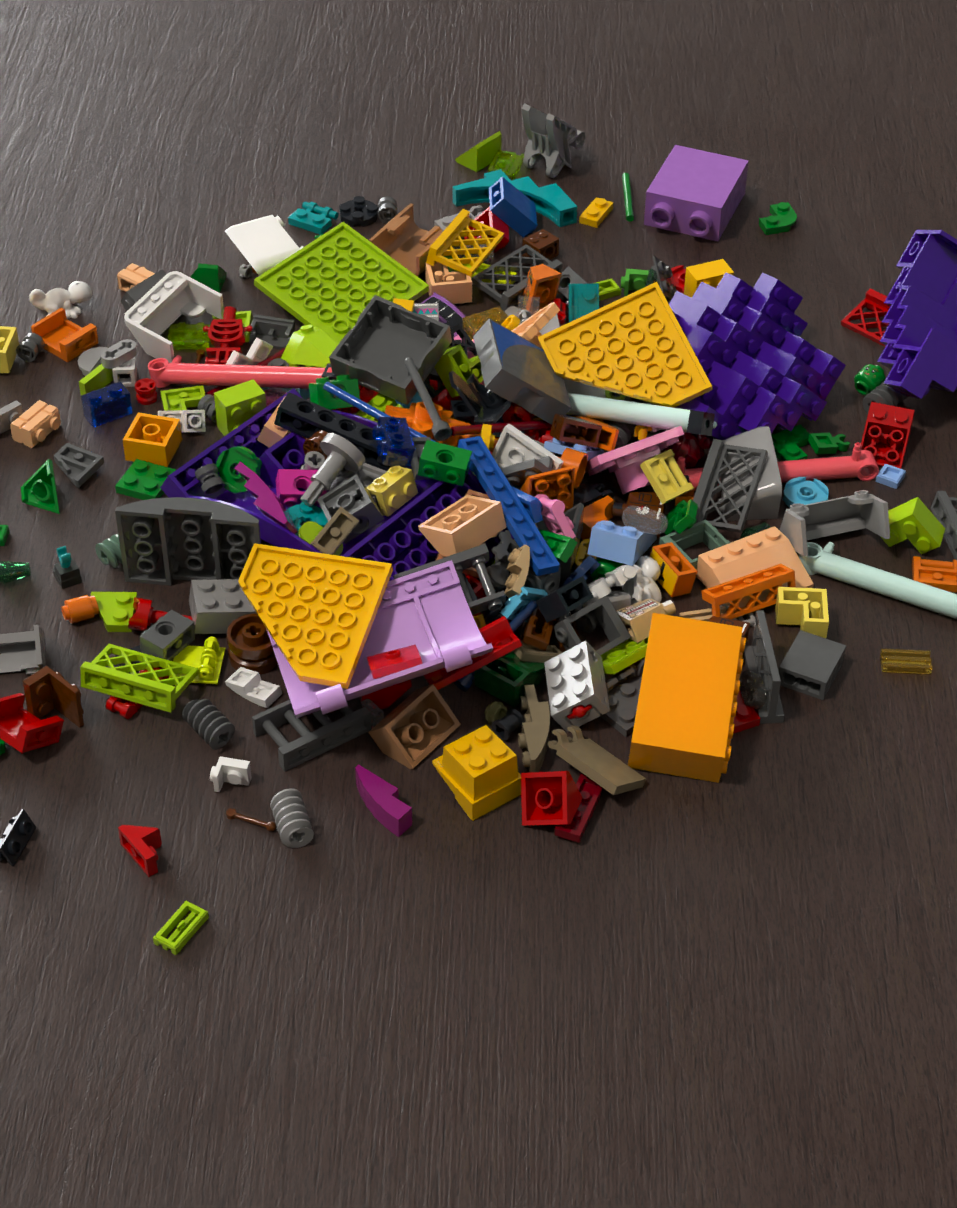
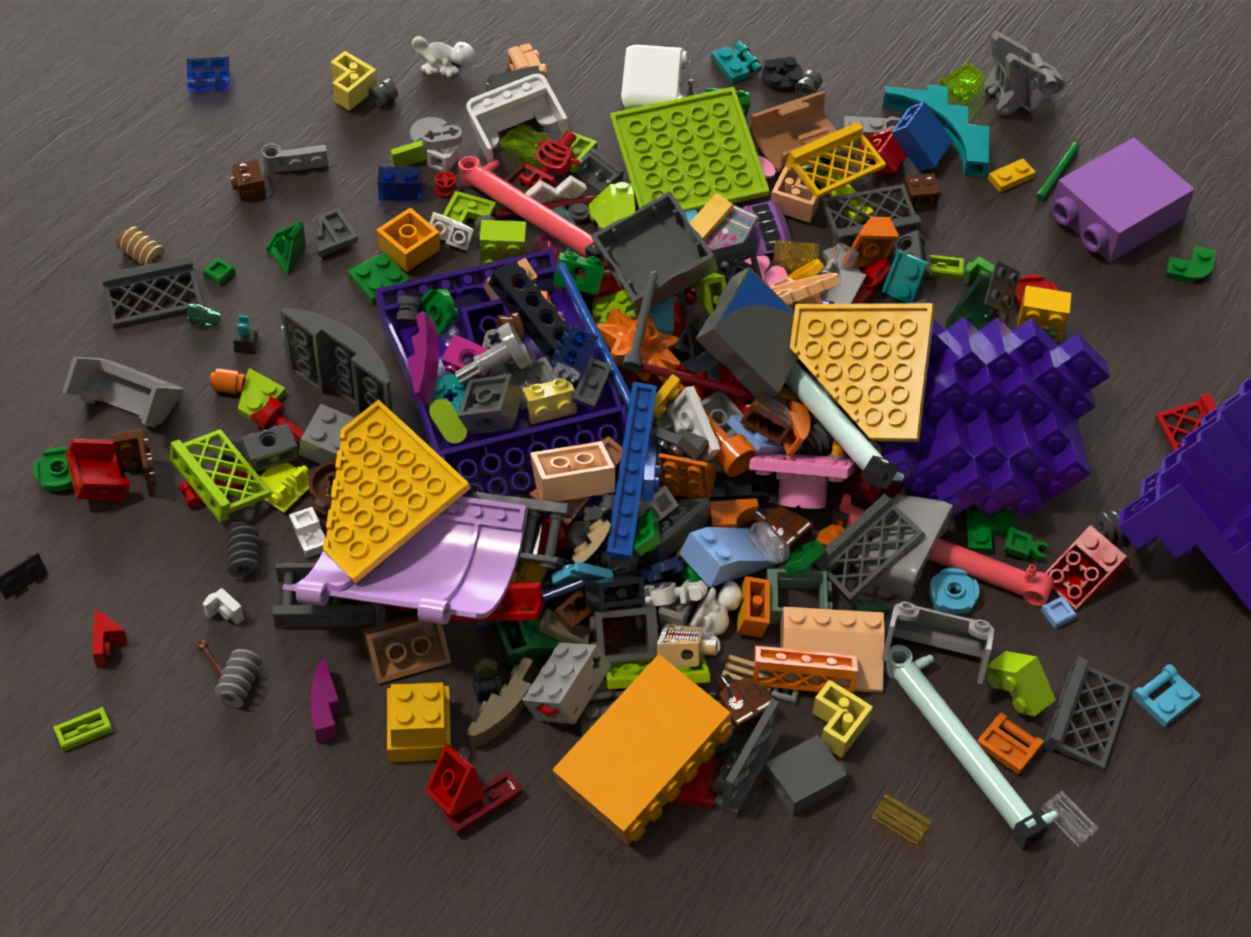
camera: 30 degrees right, 10 degrees up
(35, 424) = (329, 175): light nougat brick -> none
(65, 337) = (420, 92): orange panel -> none
(210, 275) = (588, 88): green slope -> none
(335, 532) = (454, 423): dark tan slope -> none
(394, 661) = (407, 579): red plate -> none
(444, 462) = (596, 388): green brick -> none
(482, 153) = (949, 59): lime slope -> none
(554, 516) = (665, 505): bright pink plate -> none
(595, 762) = (528, 767): dark tan tile -> none
(662, 478) = (809, 509): light yellow plate -> none
(869, 378) = (1122, 494): green head -> none

